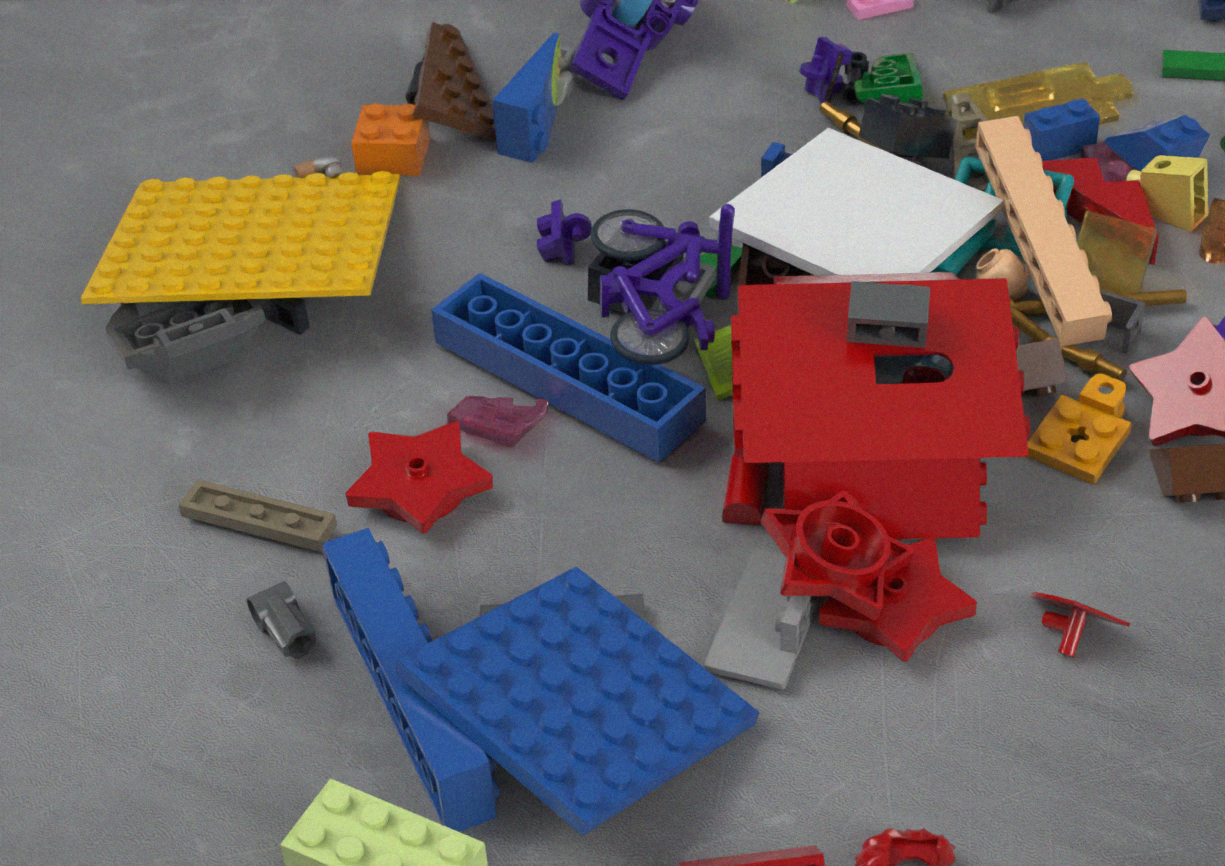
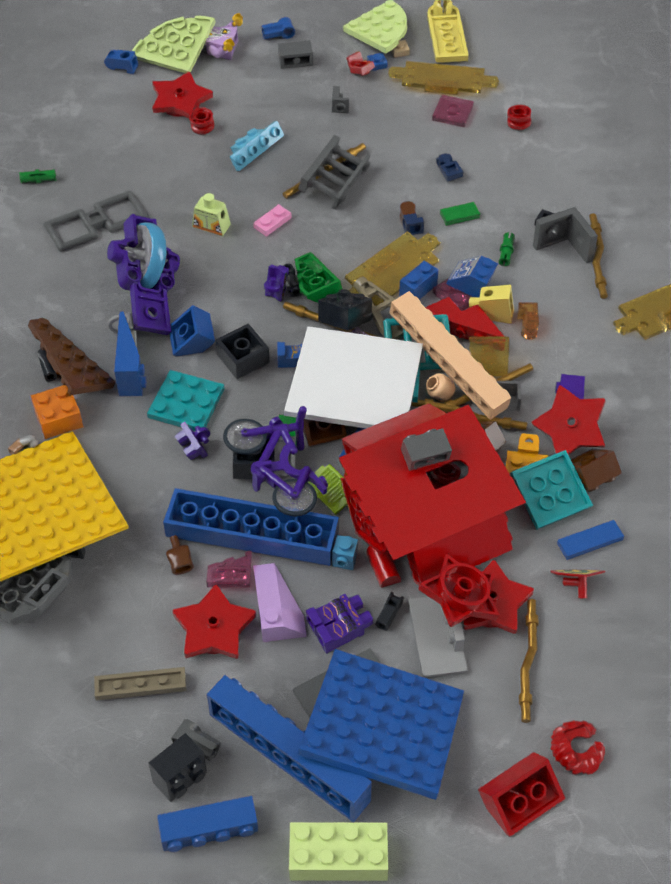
camera: 30 degrees left, 10 degrees up
(216, 738) = (207, 824): none -> blue brick
(220, 637) = (178, 767): none -> black brick
(434, 374) = (179, 557): none -> reddish brown piece
(532, 488) = (277, 607): none -> lavender wedge
(590, 182) = (185, 400): none -> teal plate
(617, 538) = (338, 621): none -> dark purple hips
(657, 100) = (192, 332): none -> blue slope
(691, 448) = (345, 552): none -> dark azure brick
(711, 555) = (389, 612): none -> black bar
(713, 141) = (242, 351): none -> black brick
(861, 762) = (525, 697): none -> pearl gold bar
(1103, 49) = (410, 220): none -> dark blue leg
(1103, 471) = (551, 489): none -> teal plate
(1136, 573) = (590, 539): none -> blue tile

